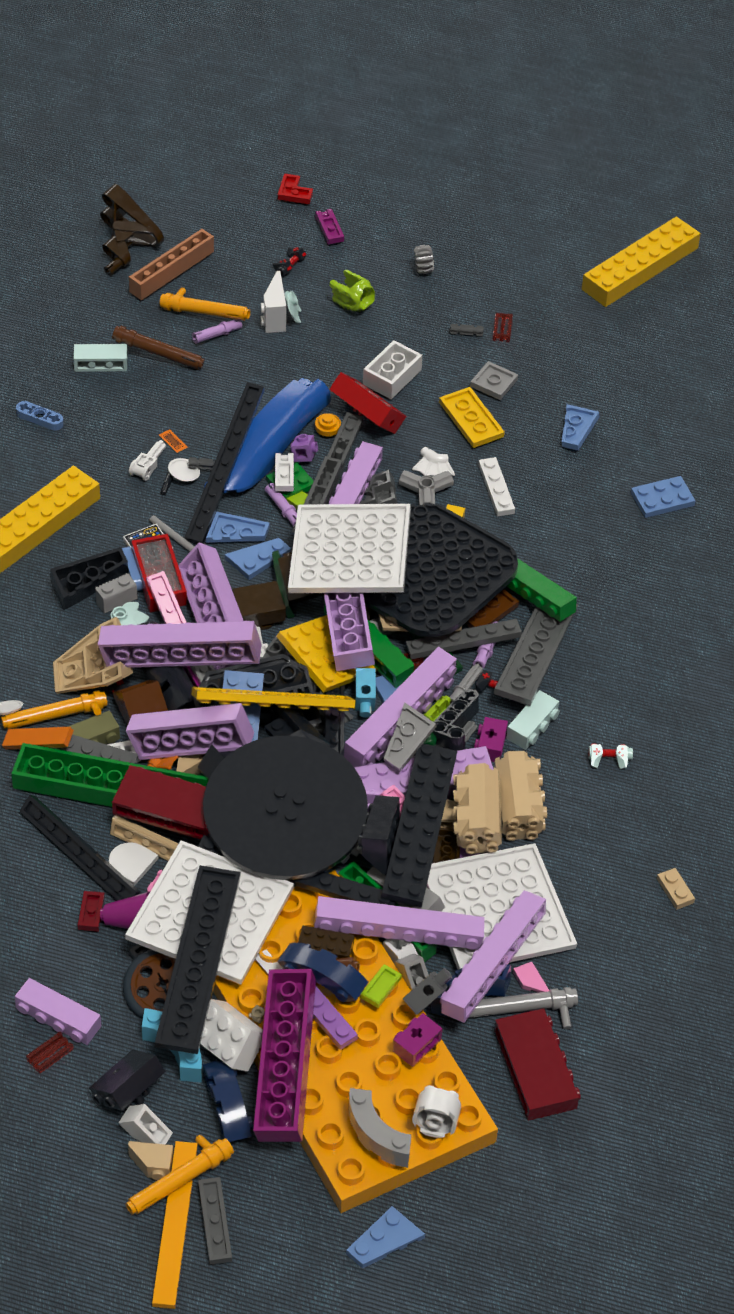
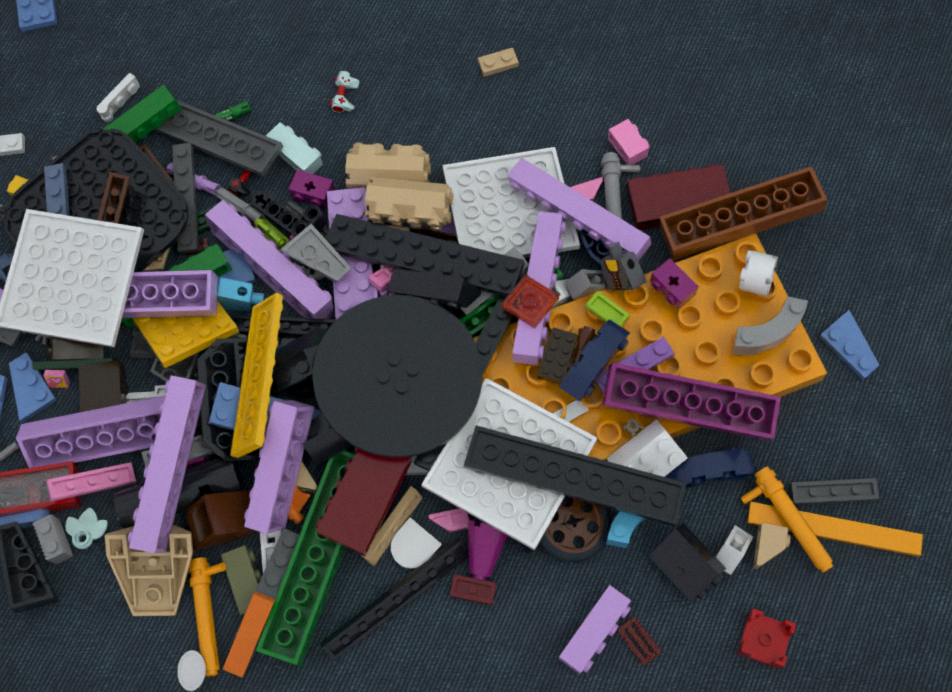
camera: 75 degrees left, 20 degrees up
(56, 1159) = (765, 639): none -> red panel
(267, 571) = (56, 378): none -> bright pink tile
(376, 908) = (530, 301): none -> clear red tile
(432, 571) = (114, 198): none -> reddish brown brick
(444, 534) = (56, 189): none -> sand blue plate
(514, 1108) = (742, 213): none -> dark orange brick
(566, 573) = (118, 97): none -> white plate
(567, 666) = (235, 111): none -> green axle
(595, 1012) = (628, 142): none -> bright pink brick

